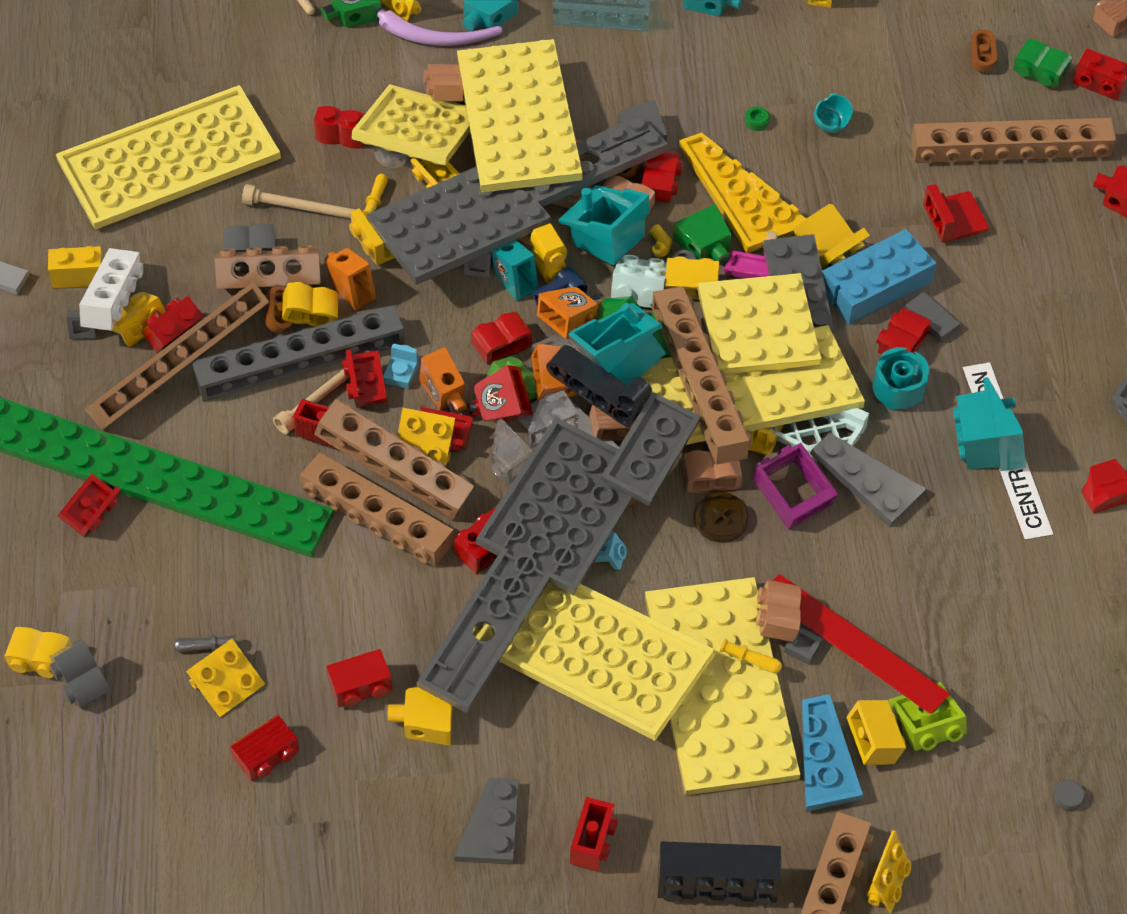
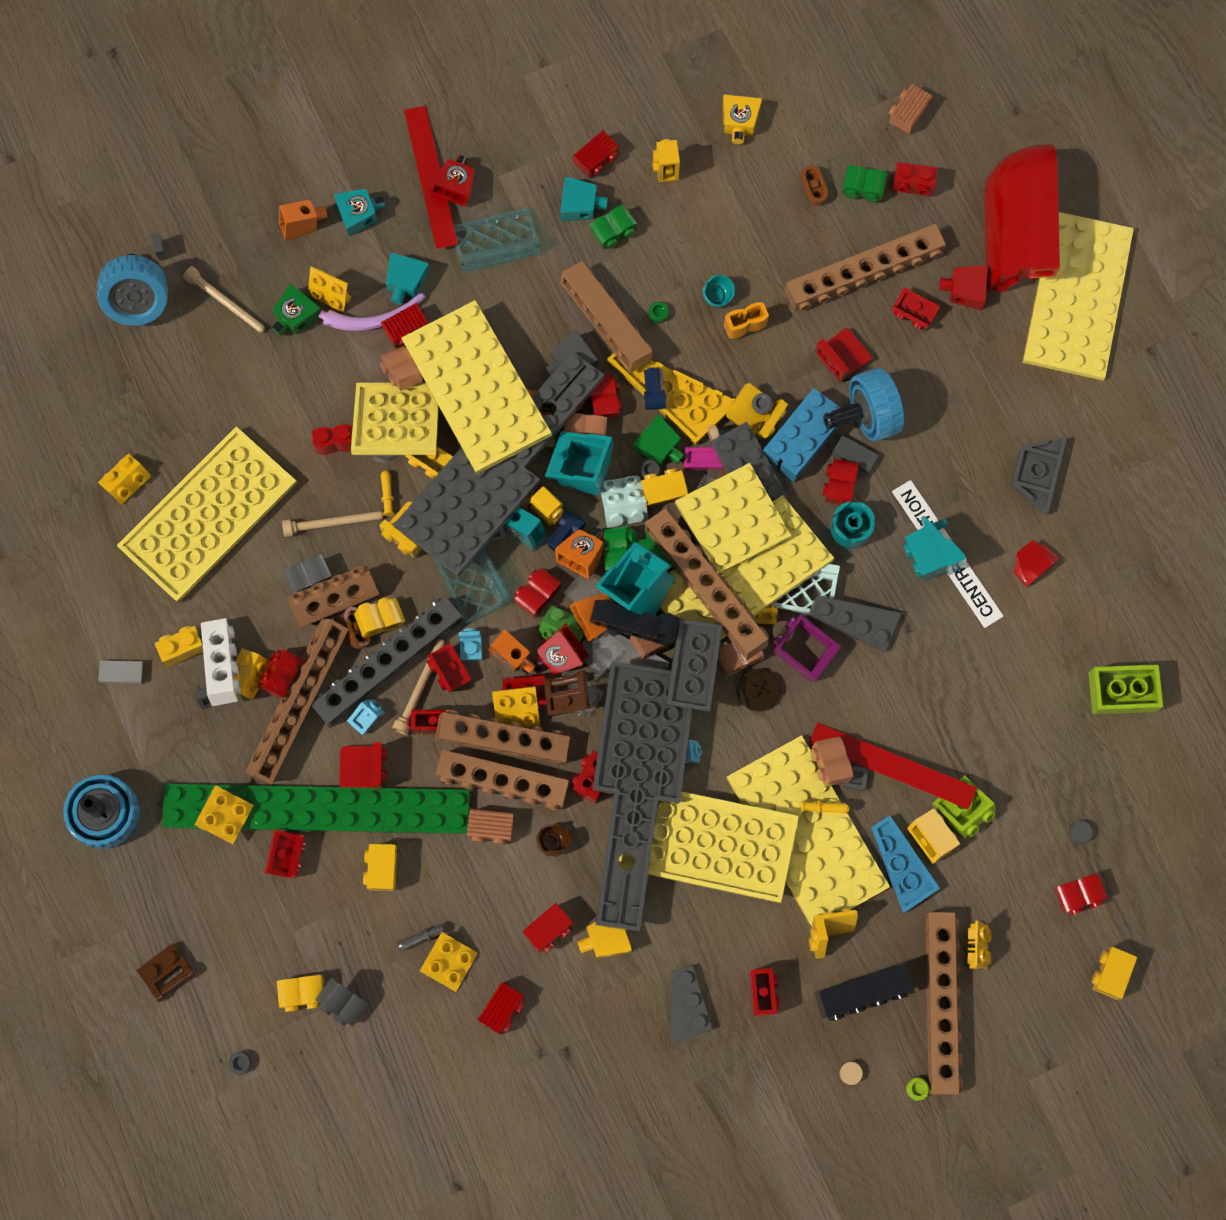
camera: 20 degrees left, 20 degrees up
(40, 437) = (224, 814): none -> yellow hinge
(96, 99) = (124, 478): none -> yellow bracket
(193, 551) = (381, 867): none -> yellow brick
(223, 445) = (363, 766): none -> red bracket
(249, 397) = (366, 715): none -> medium azure bracket
(340, 552) = (490, 826): none -> nougat brick
(351, 277) = (400, 580): orange torso -> none
(407, 590) = (553, 840): none -> reddish brown hair
(456, 309) = (493, 579): none -> clear light blue fence
(464, 40) = (404, 324): none -> red brick
(489, 445) = (567, 700): none -> reddish brown plate
(663, 241) = (628, 458): yellow arm -> none
(695, 100) = (606, 317): none -> medium nougat brick
(707, 787) = (829, 925): none -> yellow bracket
(719, 183) = (654, 395): none -> dark blue piece
(738, 25) = (613, 227): none -> green brick
(840, 228) = (763, 404): none -> dark grey tile
(853, 148) = (741, 321): none -> light orange brick
(969, 262) = (873, 405): none -> dark azure wheel
(1043, 860) = (1081, 893): none -> red brick
(1058, 194) = (915, 308): none -> red bracket

